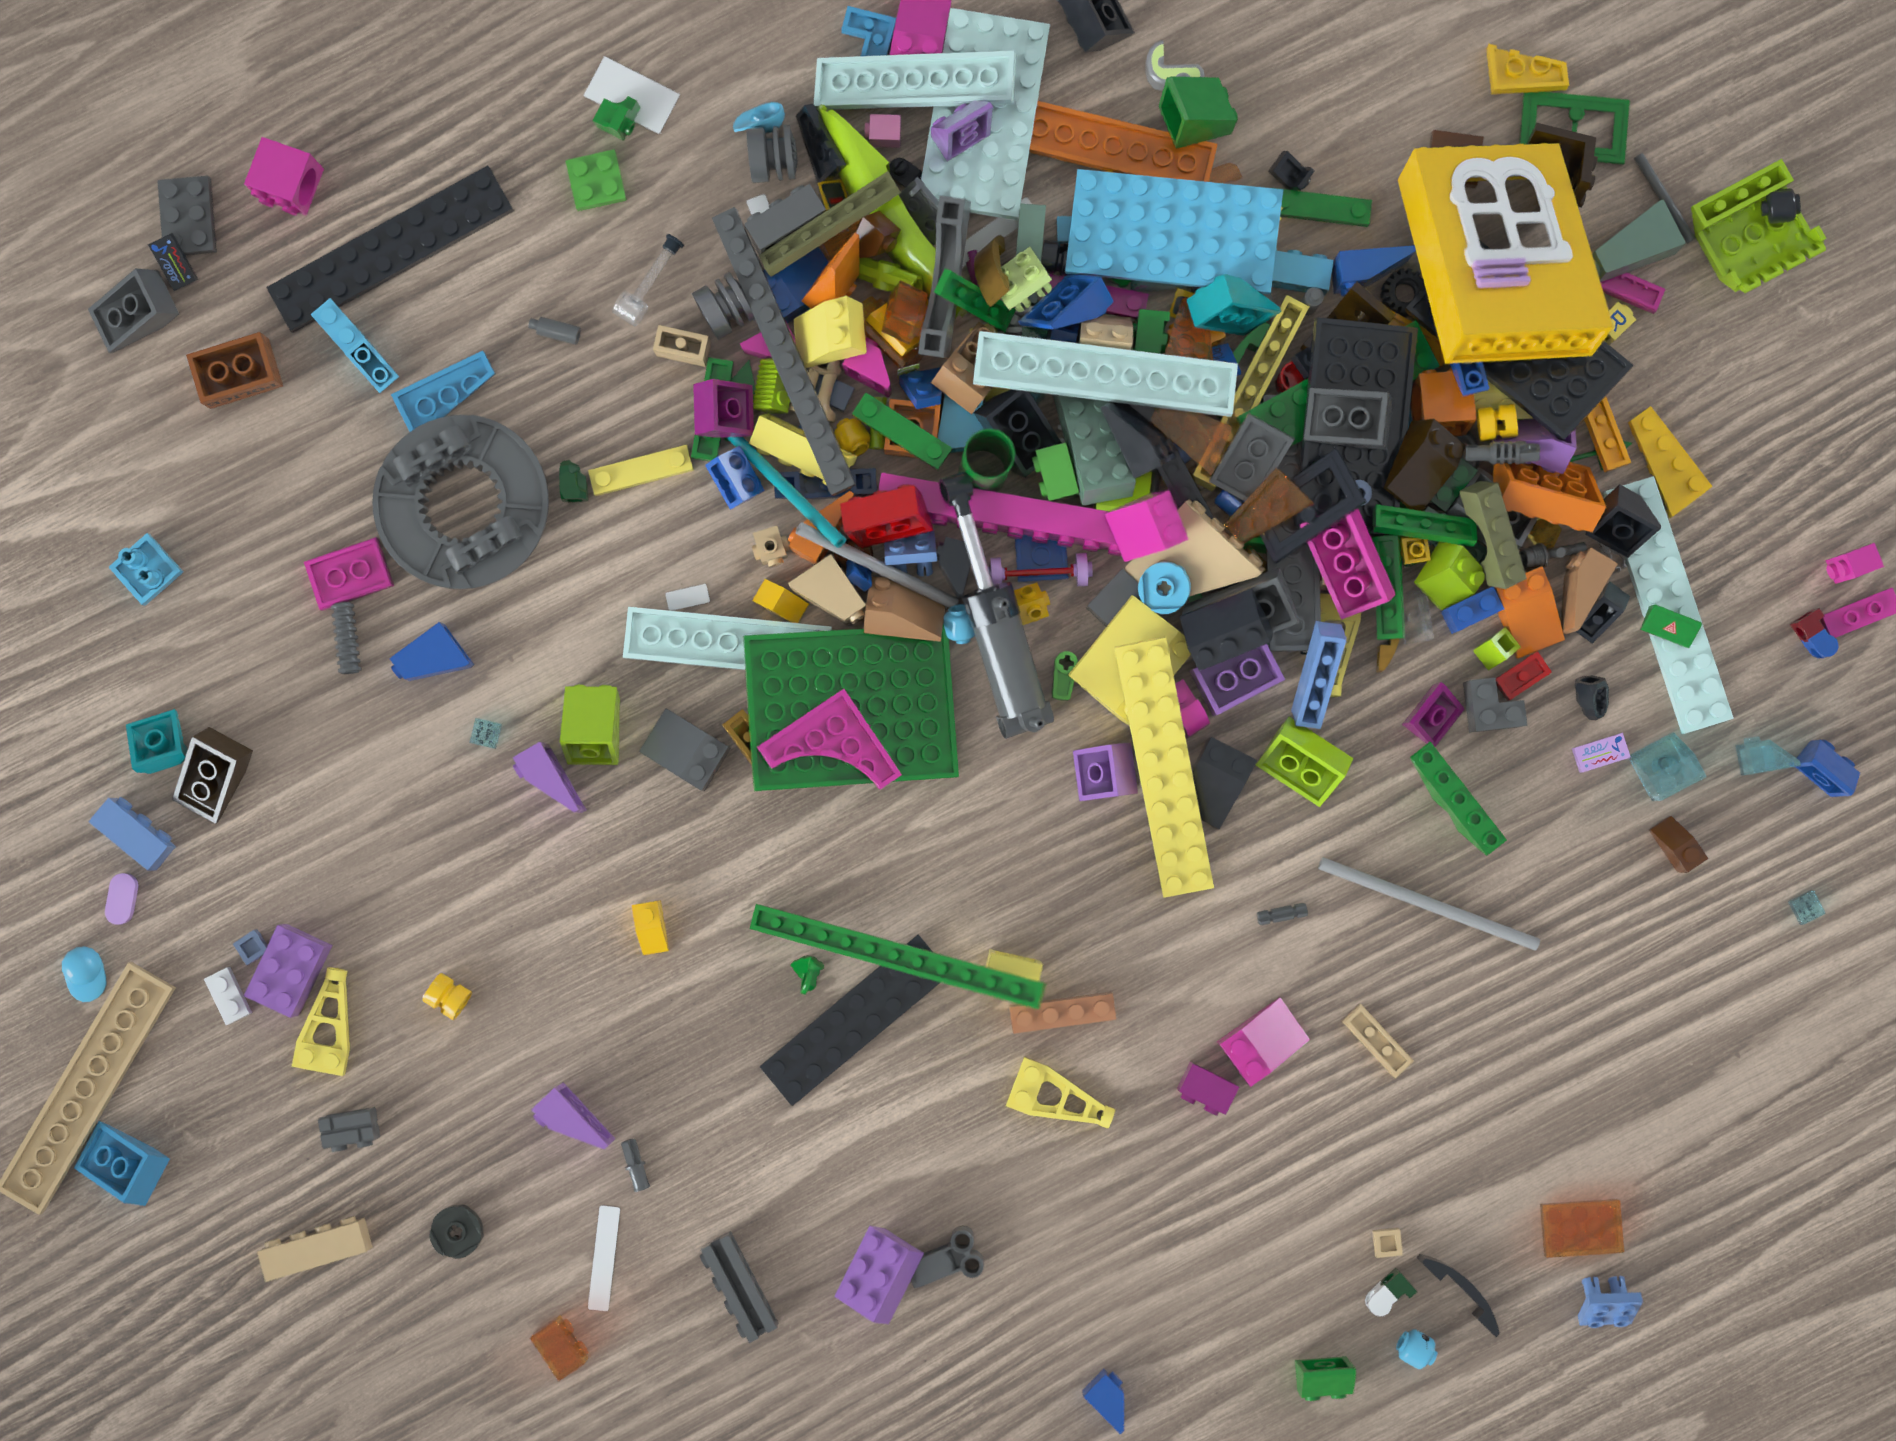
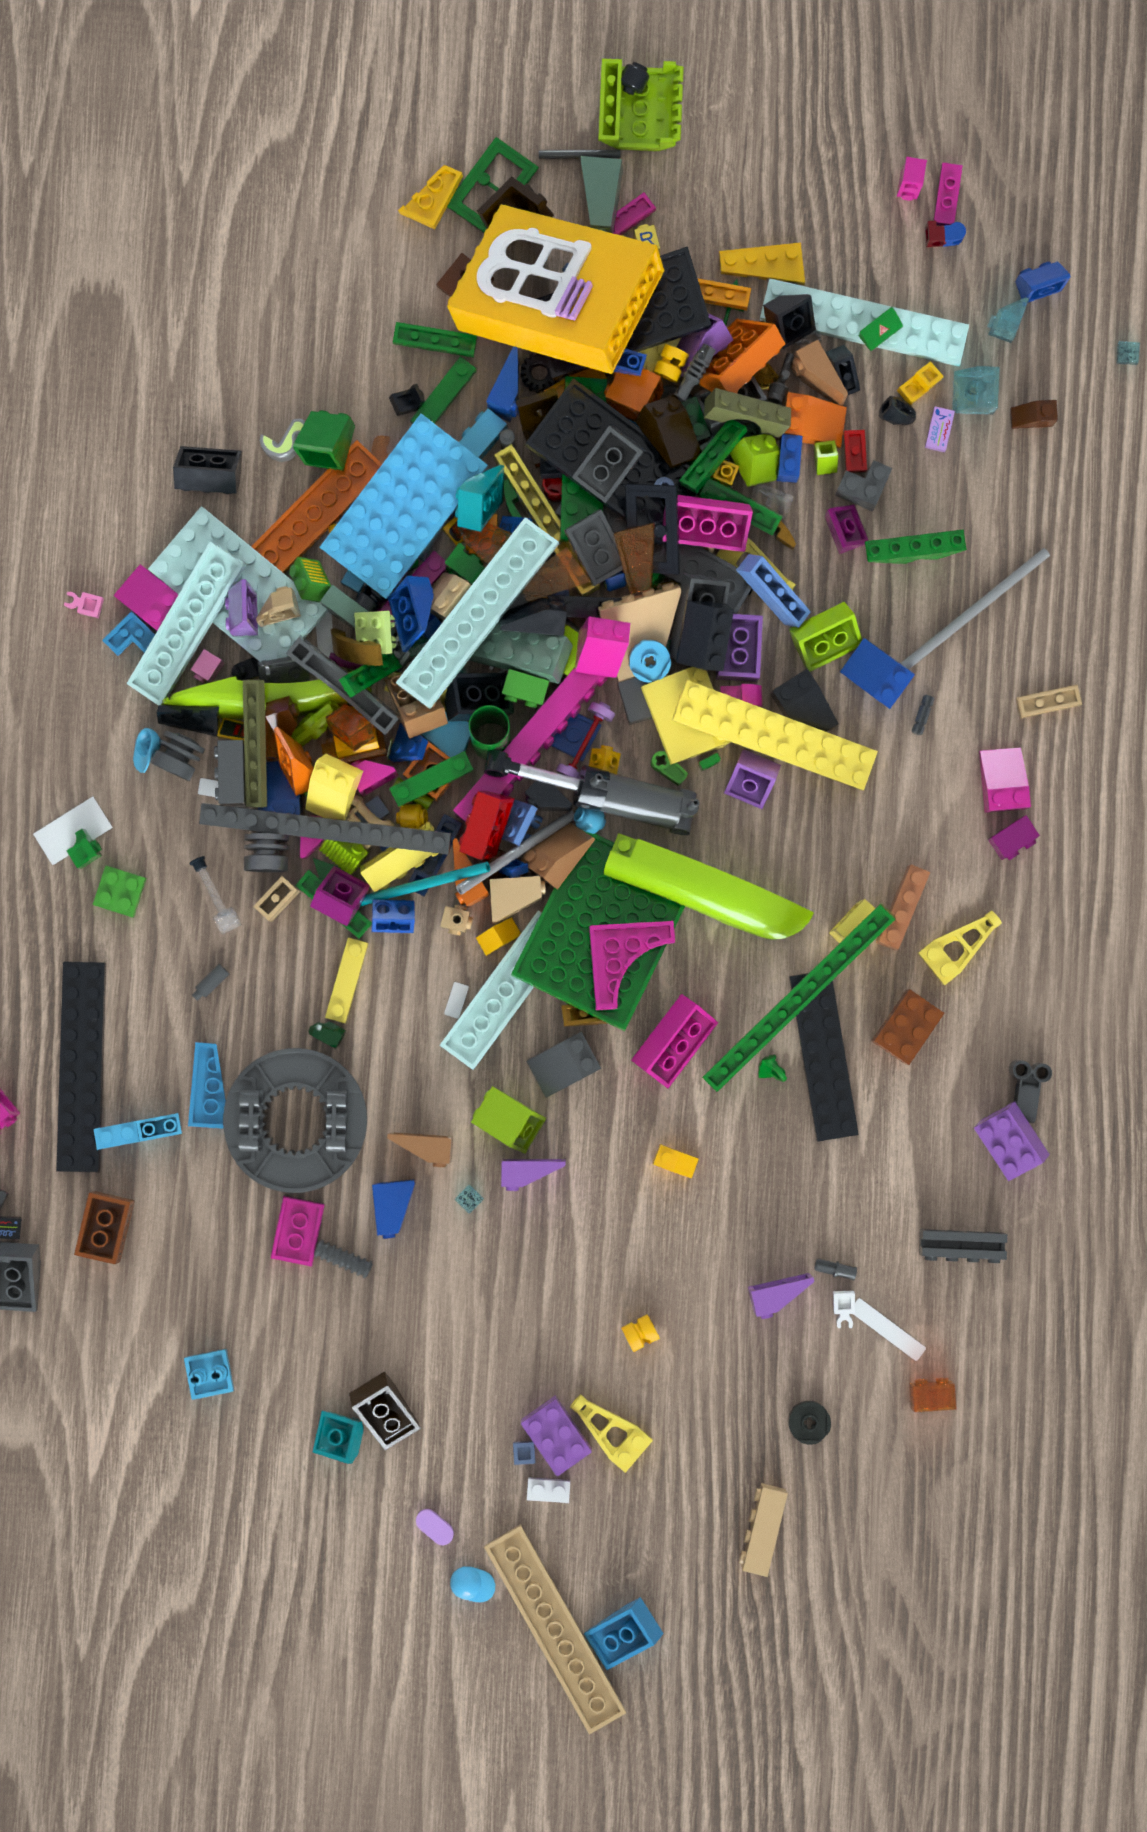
camera: 60 degrees left, 0 degrees up
(133, 833) = (393, 1491): medium blue brick -> none
(349, 1128) = (693, 1456): dark grey brick -> none
(511, 656) = (430, 1148): none -> medium nougat slope
(600, 1197) = (844, 1305): none -> white plate
(777, 852) = (674, 1041): none -> dark pink slope
(937, 1092) = (907, 1027): none -> dark orange brick
(956, 789) = (705, 889): none -> lime slope
(988, 164) = (279, 607): none -> tan slope
(1039, 180) = (309, 579): none -> bright green brick
(1096, 715) = (709, 762): none -> green tile
(1297, 838) = (877, 673): none -> blue slope
(1373, 163) = (435, 339): none -> green plate
(1638, 703) = (920, 383): none -> yellow slope

